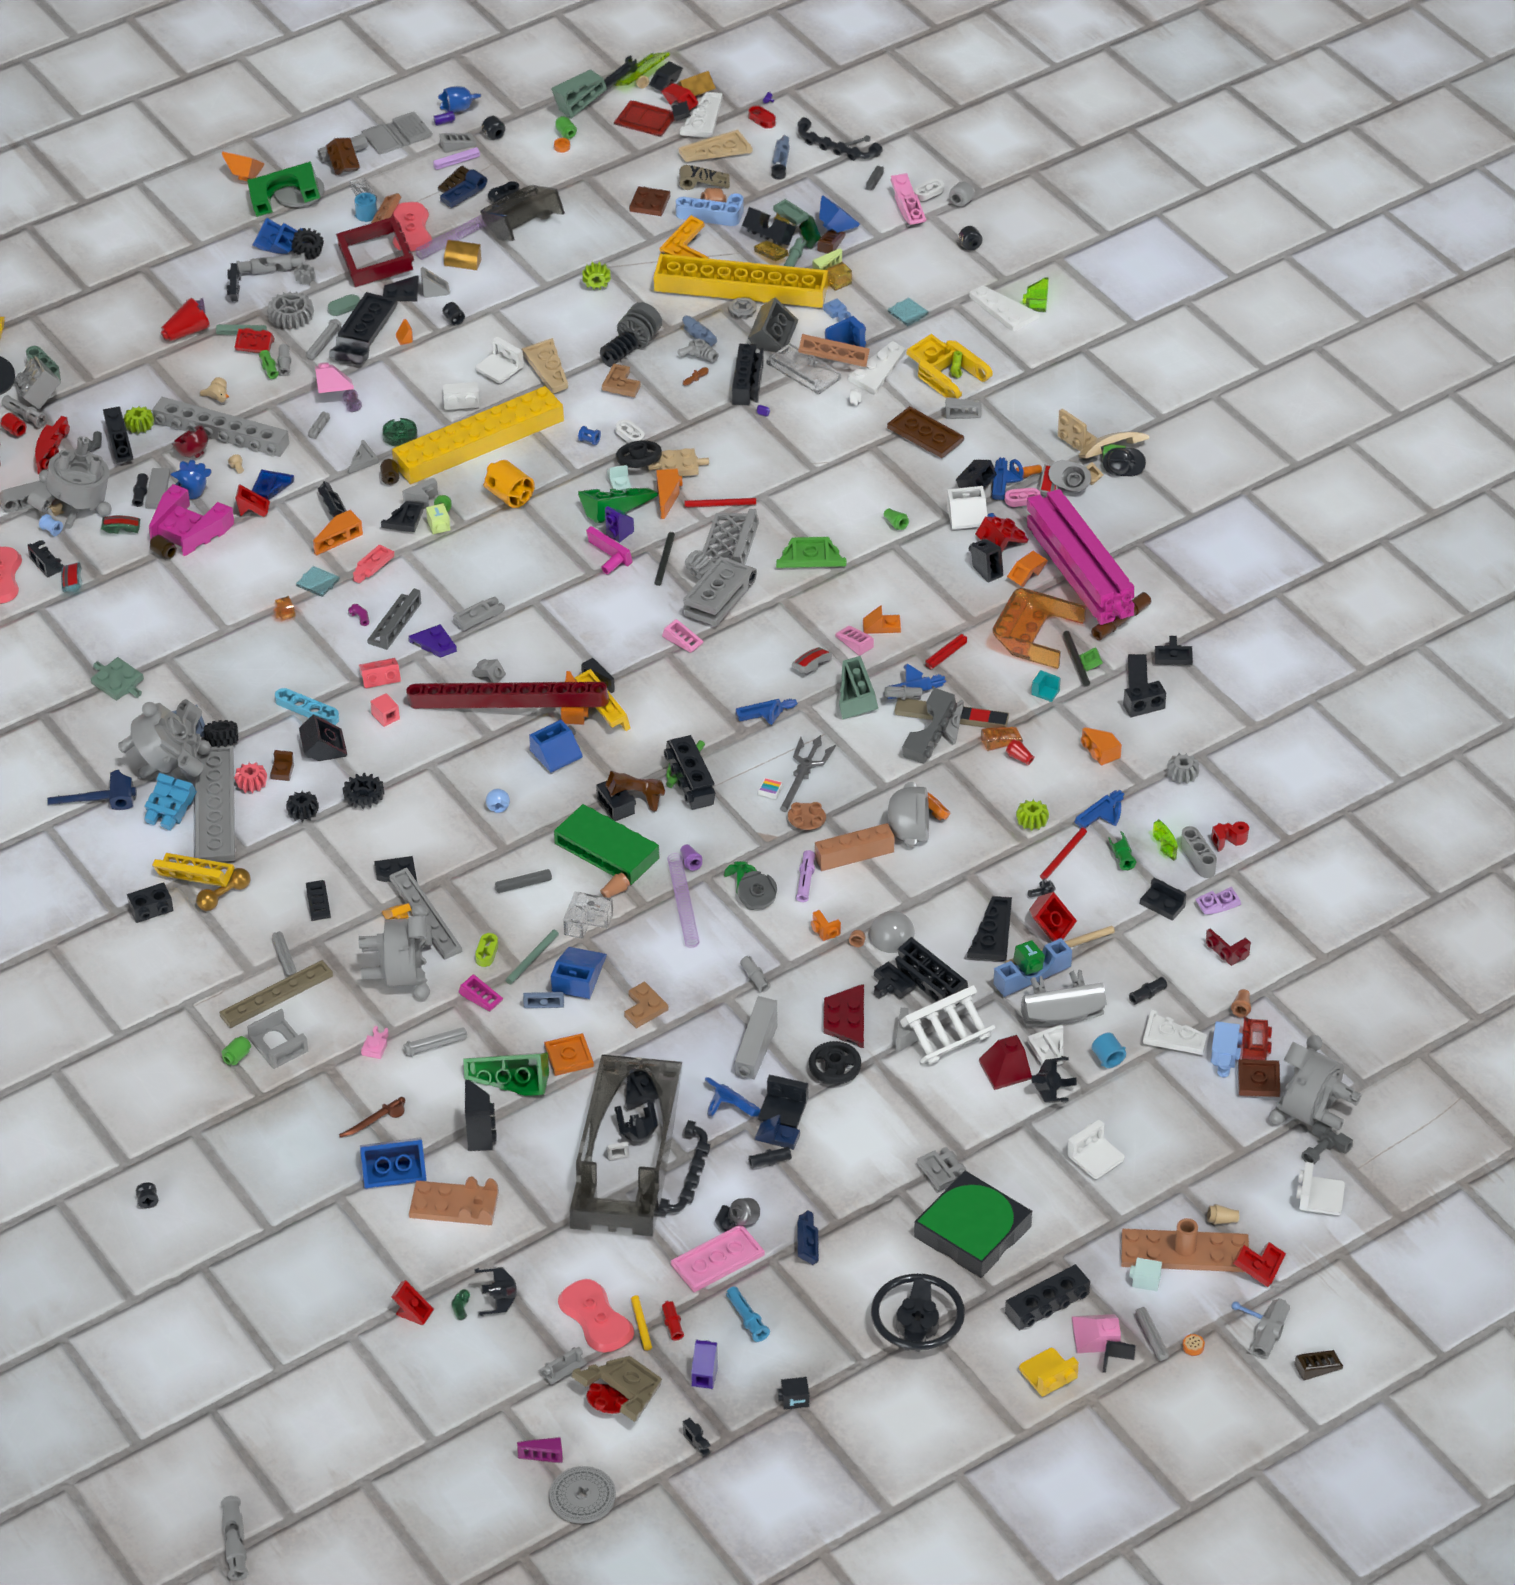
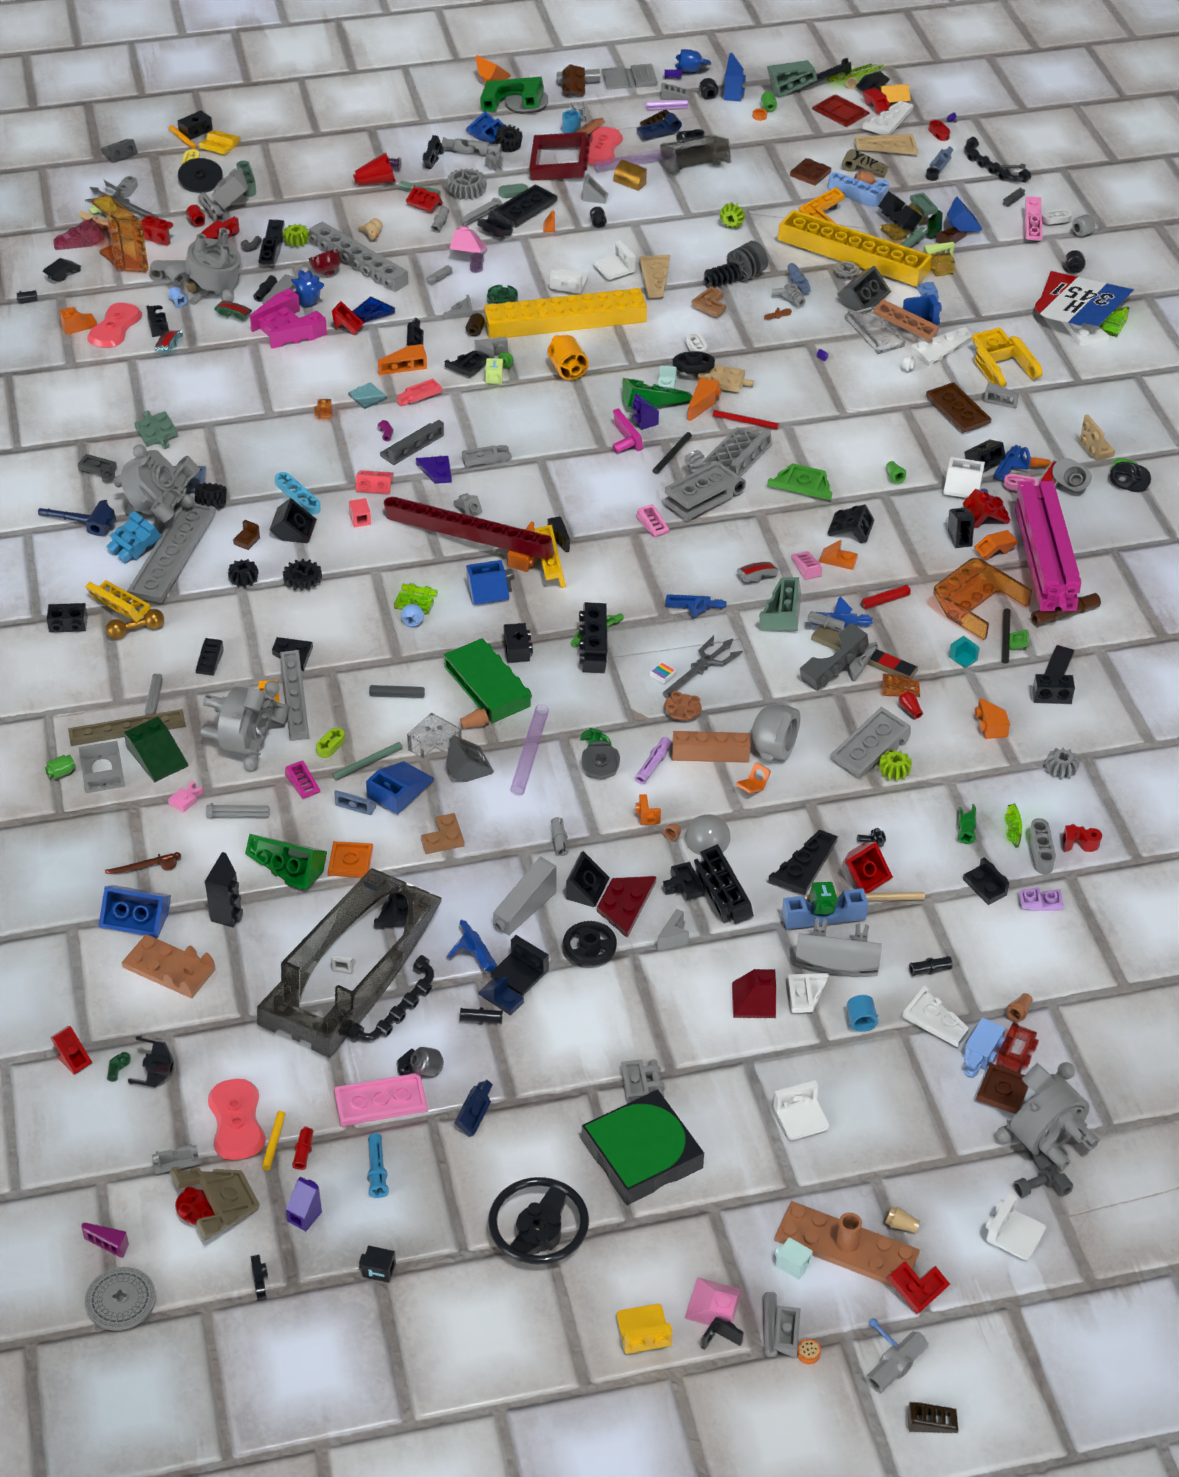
camera: 20 degrees right, 0 degrees up
(82, 736) = (98, 466): none -> dark grey hinge
(163, 547) = (255, 335): dark brown brick -> none
(236, 462) = (355, 286): tan piece -> none
(250, 777) = (214, 537): coral gear -> none
(268, 364) = (425, 219): bright green pin -> none
(320, 1006) = (155, 749): none -> dark green slope
(403, 290) = (567, 191): black wing -> none
(481, 787) = (425, 602): none -> clear neon green plate
(518, 110) = (734, 80): none -> blue slope
(583, 435) = (659, 338): blue bush -> none
(630, 928) = (467, 760): none -> dark grey slope
(638, 1127) = (372, 948): black piece -> none
(650, 787) = (527, 628): reddish brown animal -> none
(681, 111) = (871, 110): black slope -> none
(691, 858) = (556, 713): medium lavender cone -> none
(747, 374) = (822, 322): black brick -> none
(803, 1008) = (586, 881): none -> black slope
(878, 581) = (856, 519): none -> black bracket
(908, 311) = (991, 307): clear light blue piece -> none
(909, 872) = (752, 784): none -> orange bracket
(939, 810) = (807, 732): orange plate -> none
(948, 1005) = (720, 920): white fence -> none
(956, 365) = (1012, 360): lime arm -> none
(993, 281) = (1079, 299): none -> sticker
(1001, 799) = (870, 741): none -> light grey hinge
(1047, 1297) = (687, 1239): black brick -> none
(1048, 1080) = (788, 1025): black piece -> none
(1064, 852) = (909, 810): red bar -> none
(1094, 447) = (1107, 458): tan slope -> none
(1095, 473) = (1097, 480): tan slope -> none
(1102, 809) = (968, 779): blue piece -> none
(1169, 1333) = (787, 1330): none -> light grey slope
(1173, 653) = (1101, 655): black hinge -> none
(1230, 954) = (1032, 955): dark red bracket -> none

